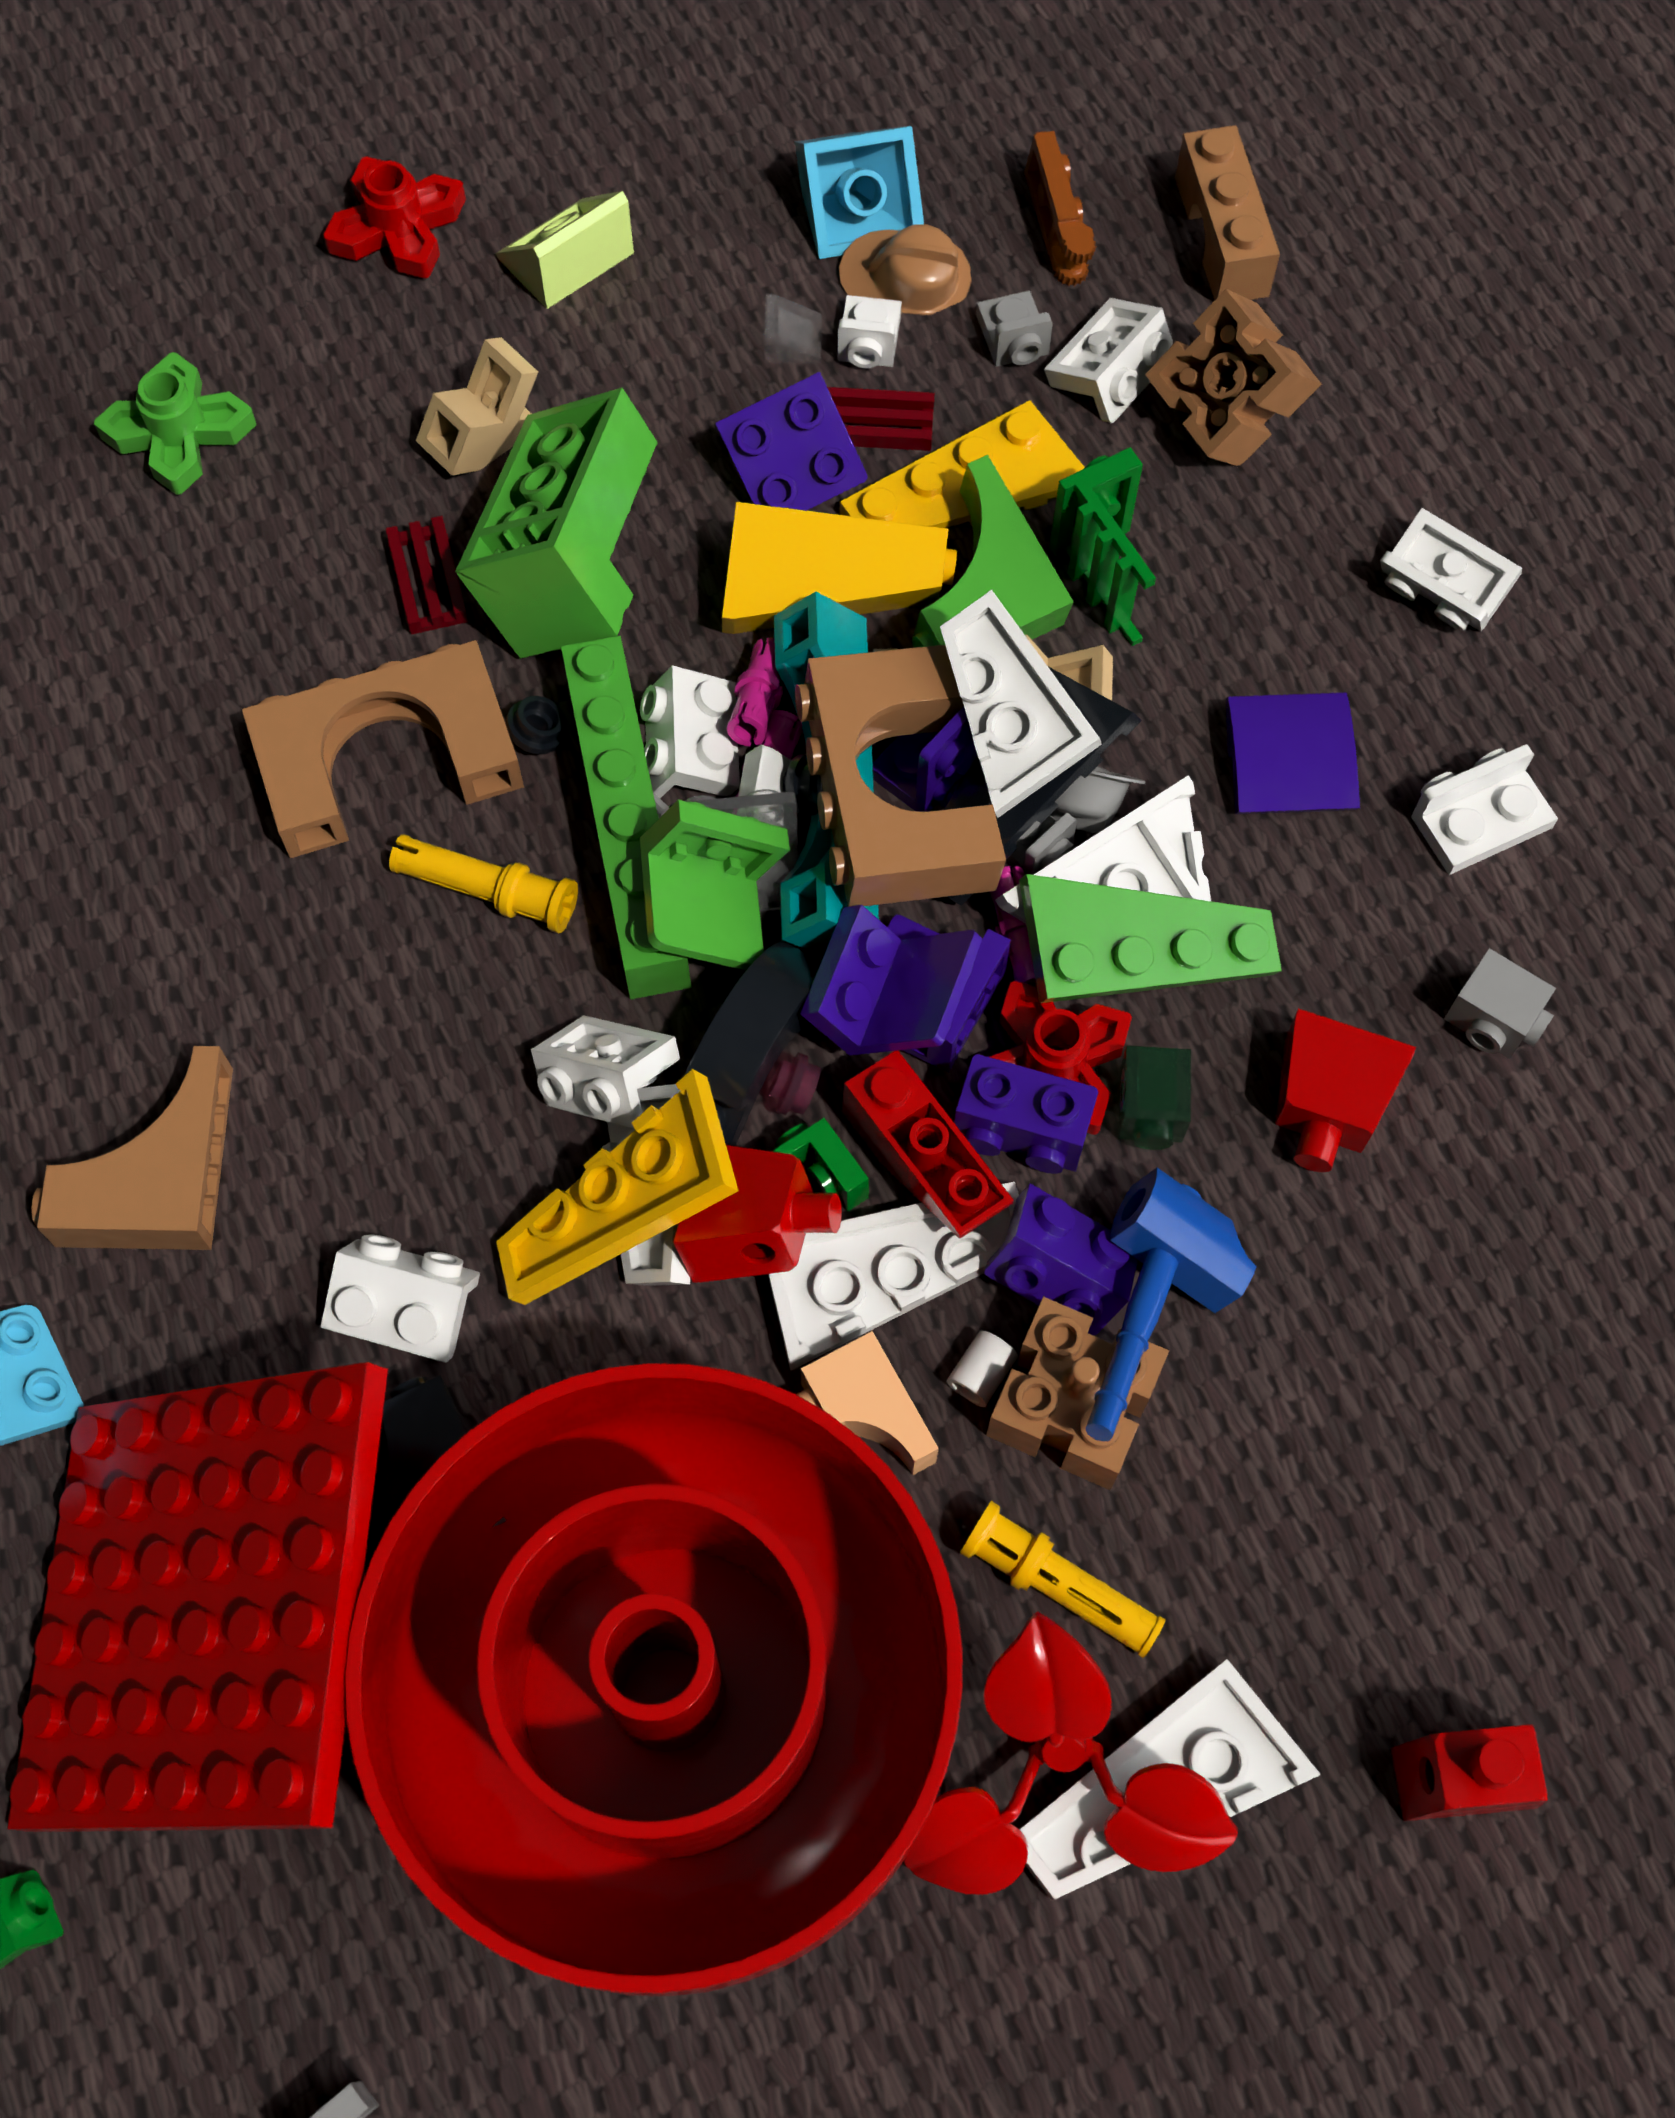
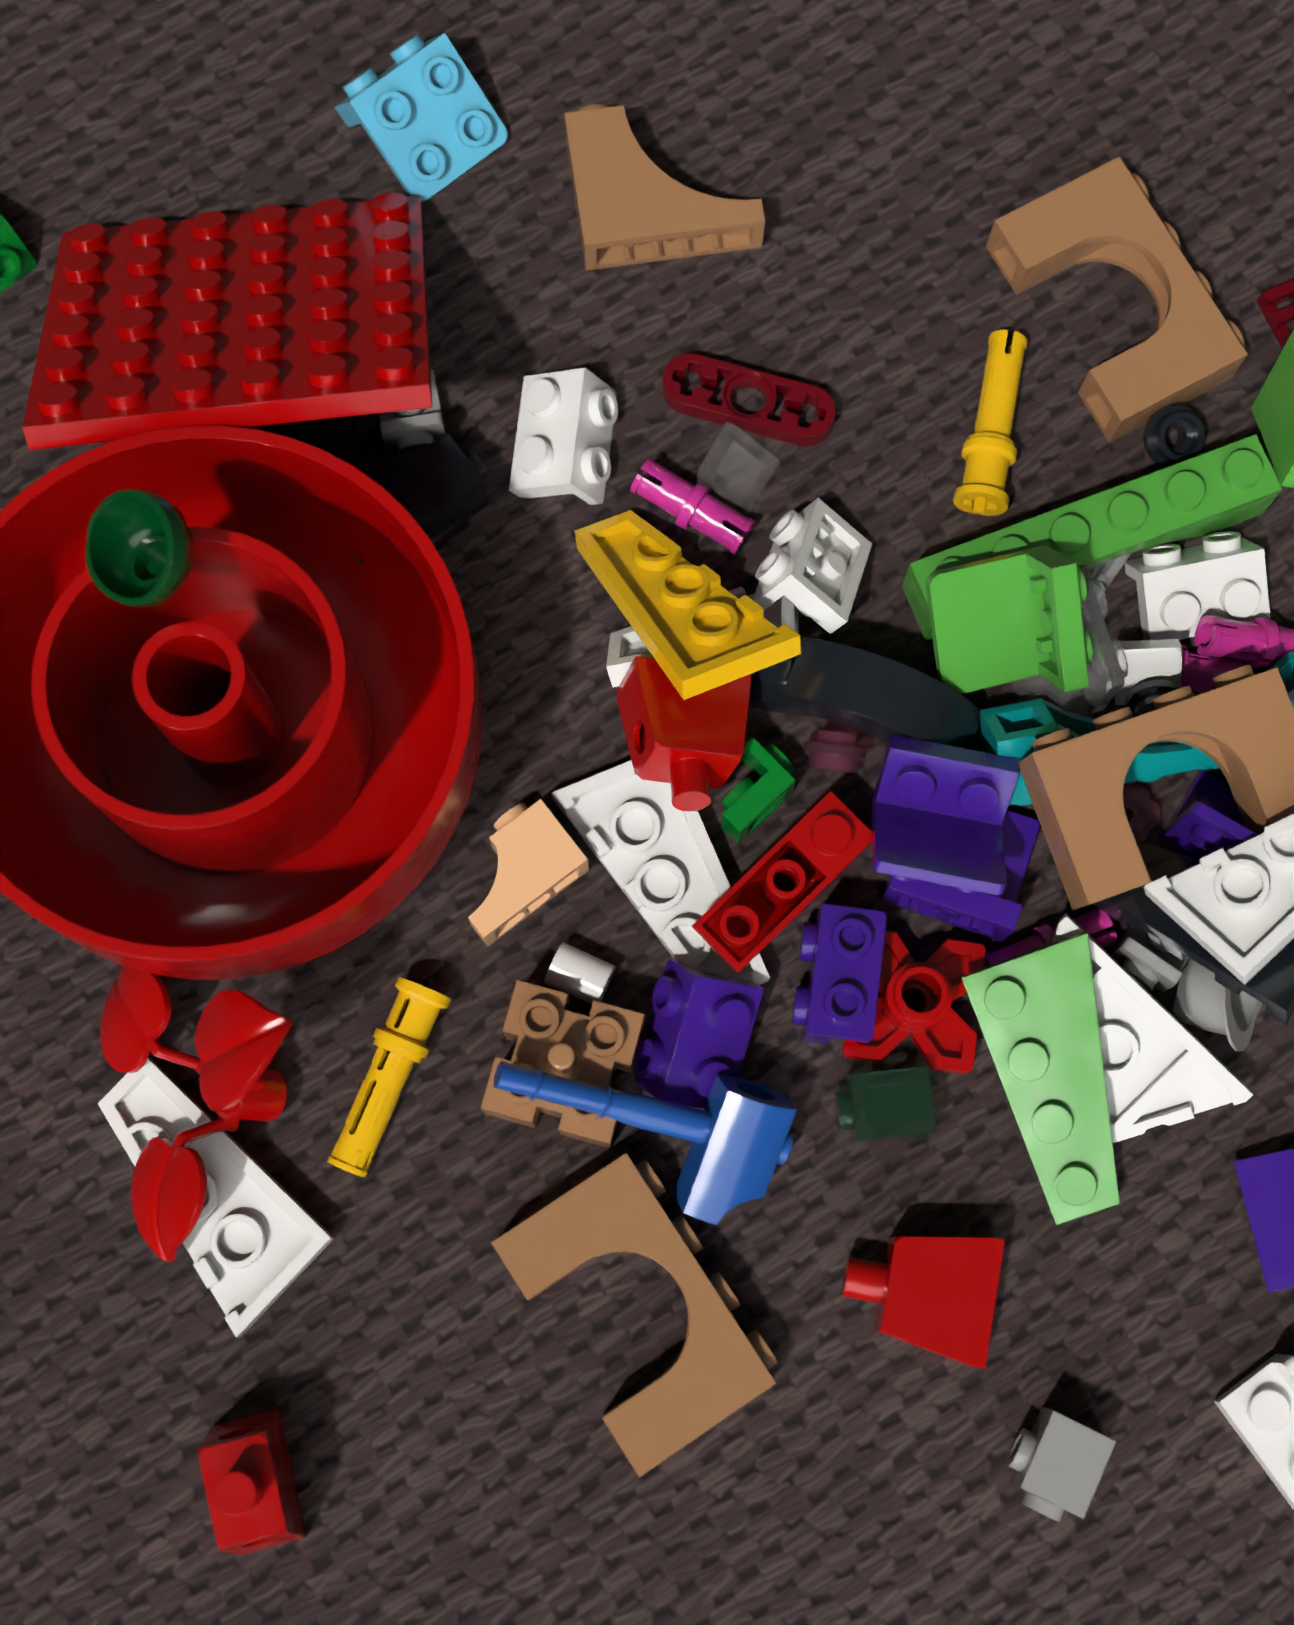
camera: 80 degrees right, 10 degrees up
(395, 1155) = (738, 377): none -> dark red beam
(474, 1130) = (737, 468): none -> clear slope
(505, 1178) = (692, 505): none -> dark pink pin
(508, 1677) = (138, 548): none -> dark green piece
(1384, 1294) = (717, 1363): none -> medium nougat arch

